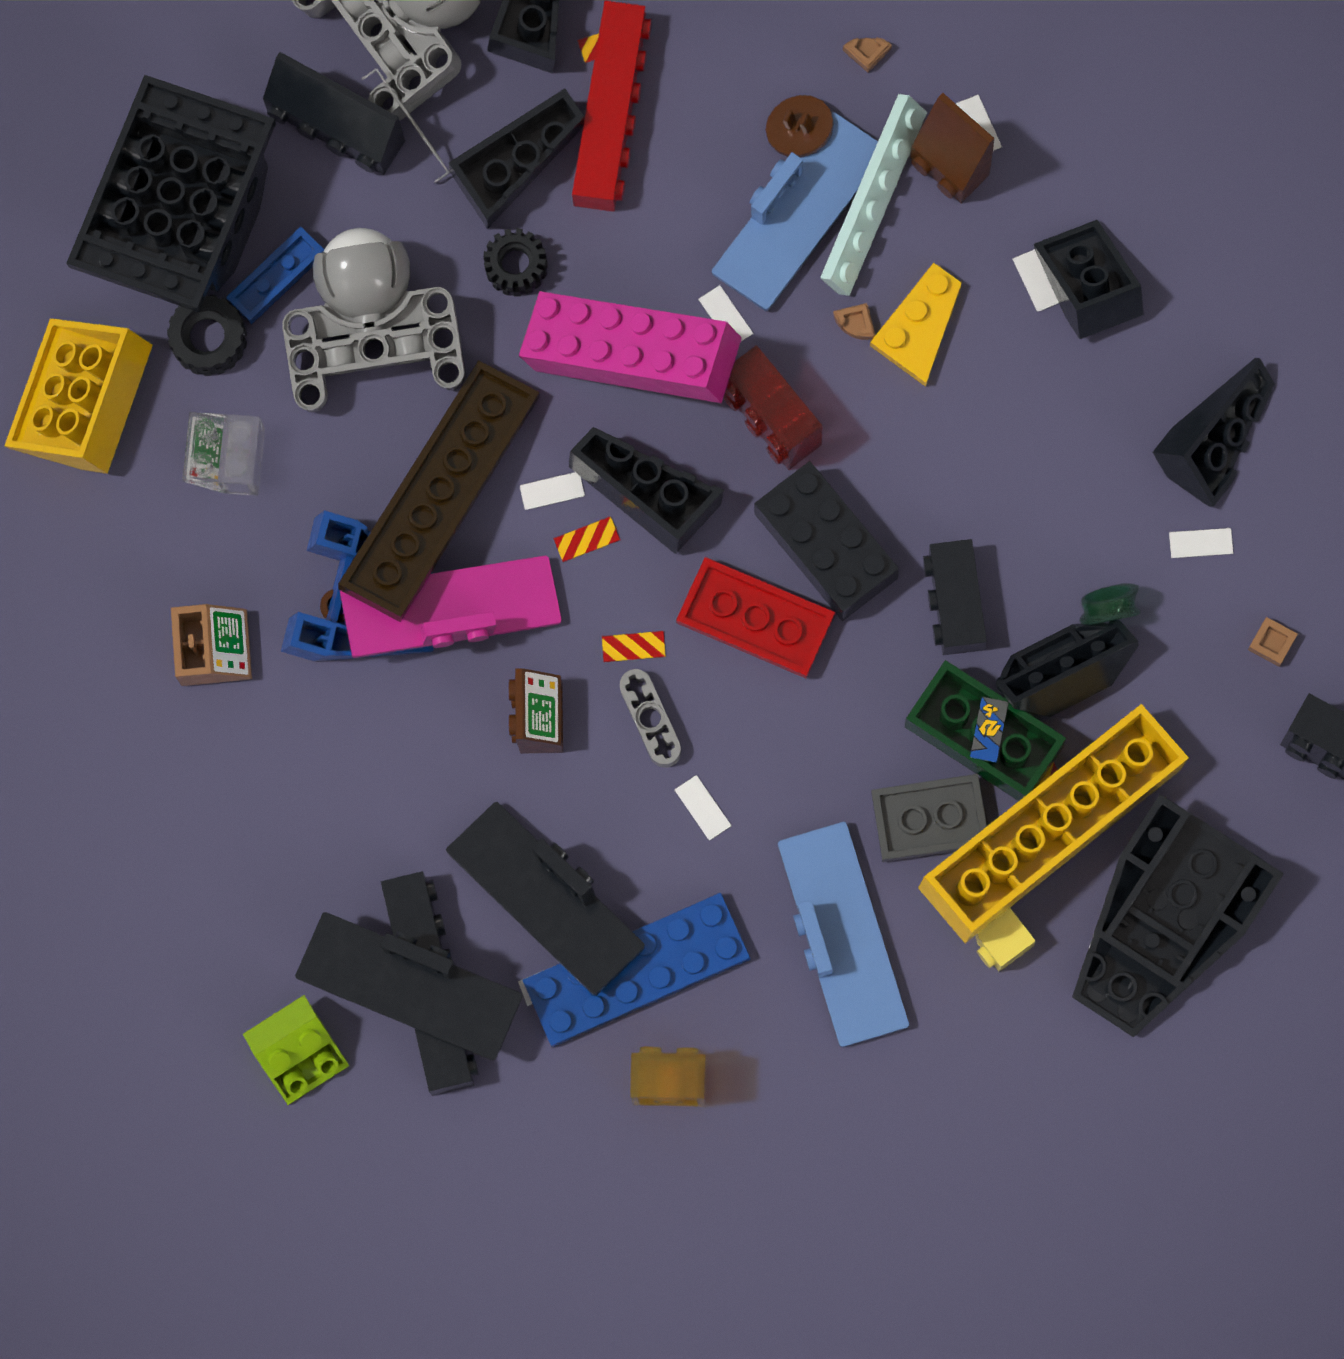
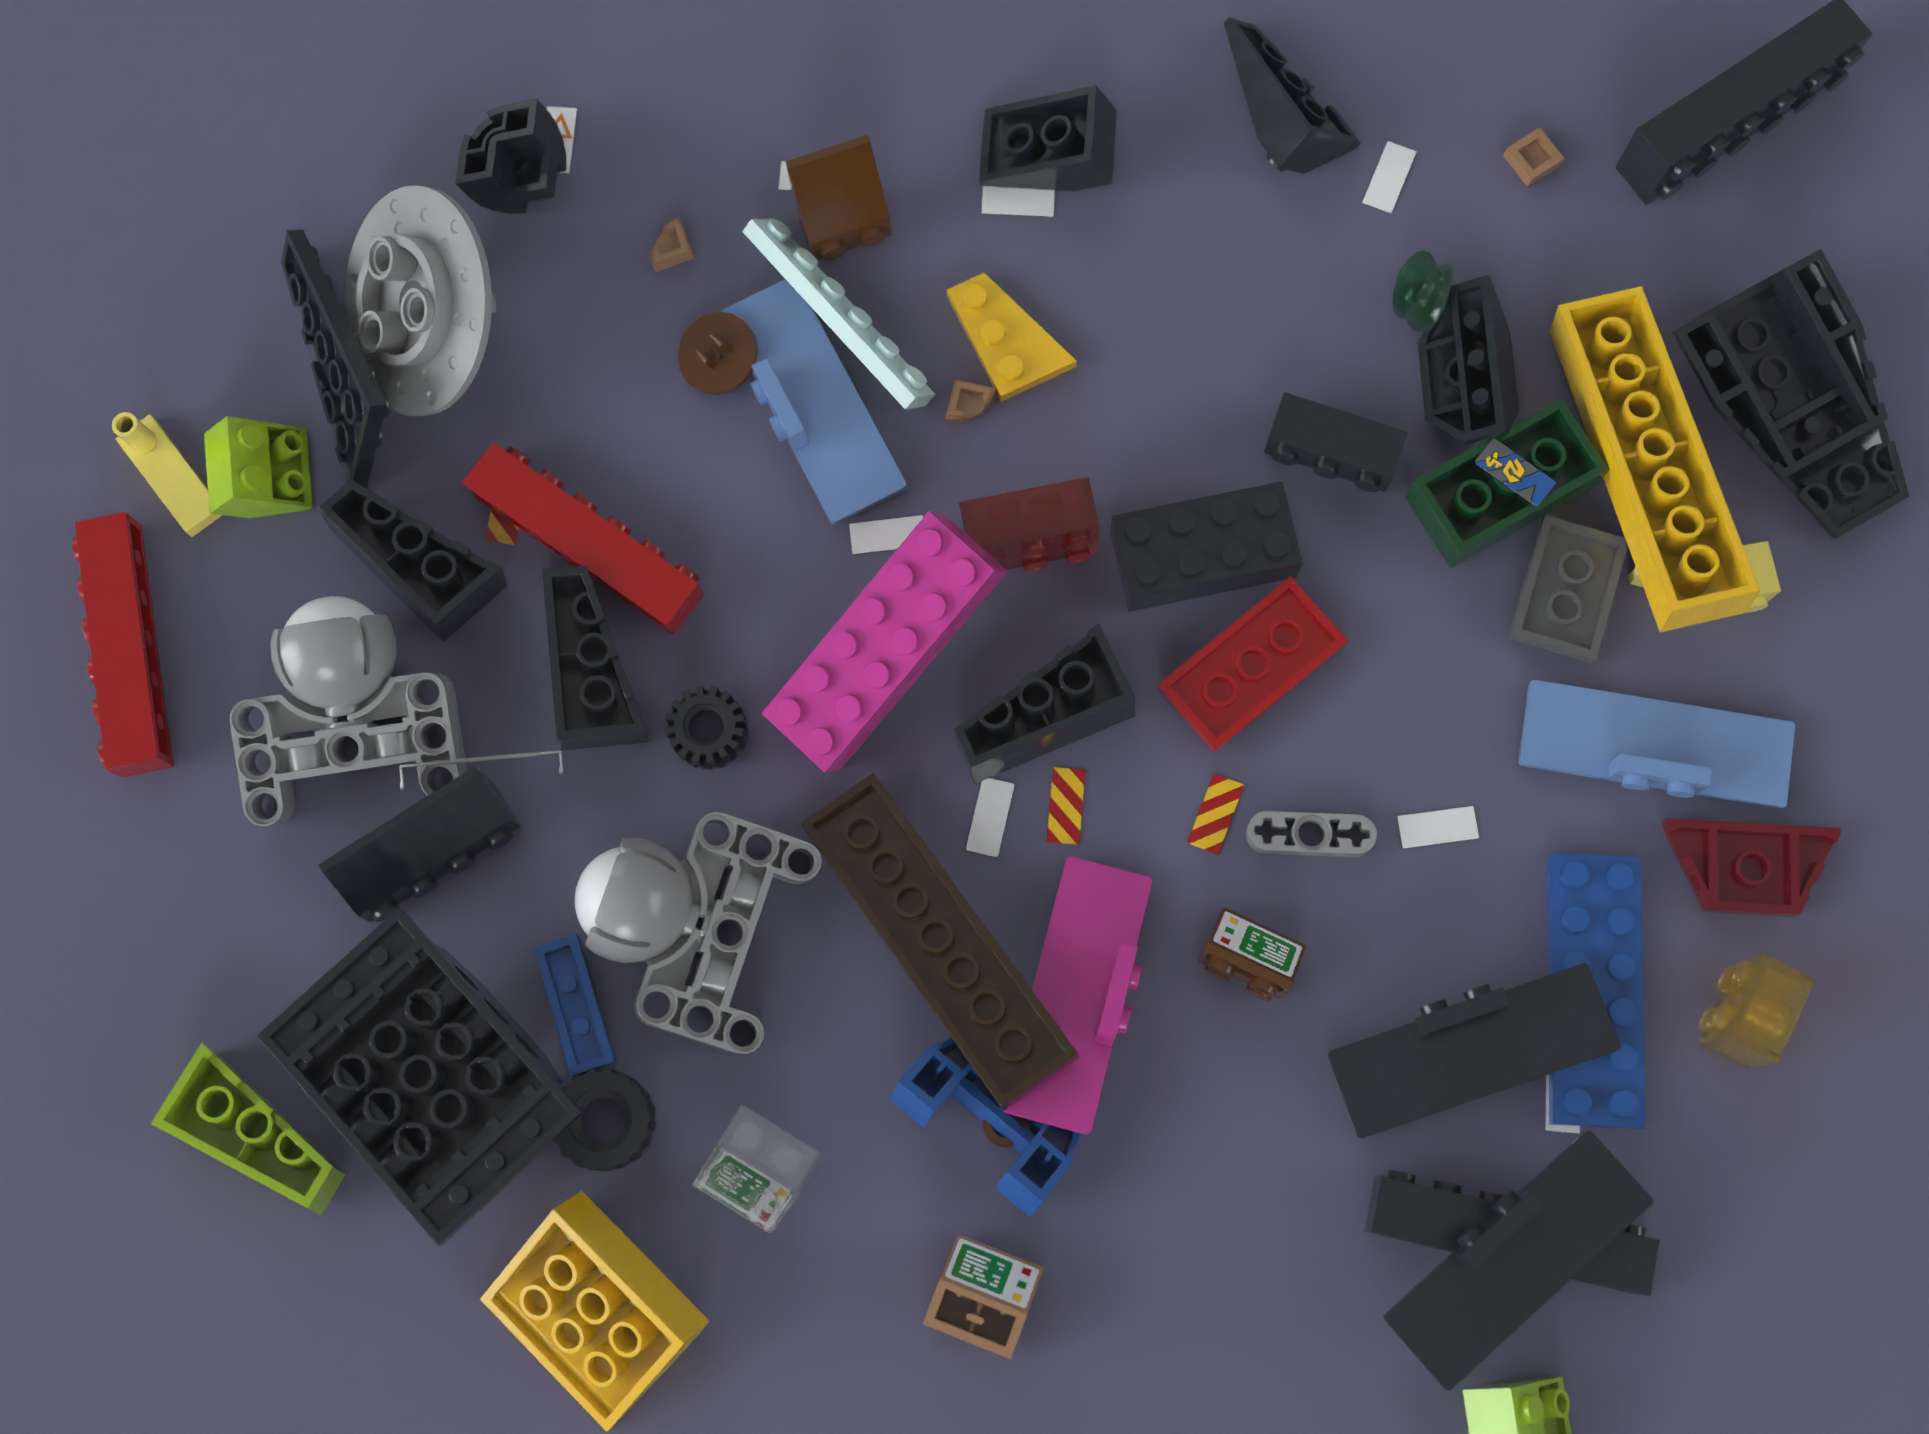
camera: 65 degrees left, 0 degrees up
(84, 100) = (239, 1127): none -> lime wedge
(784, 1040) = (1750, 864): none -> dark red wing

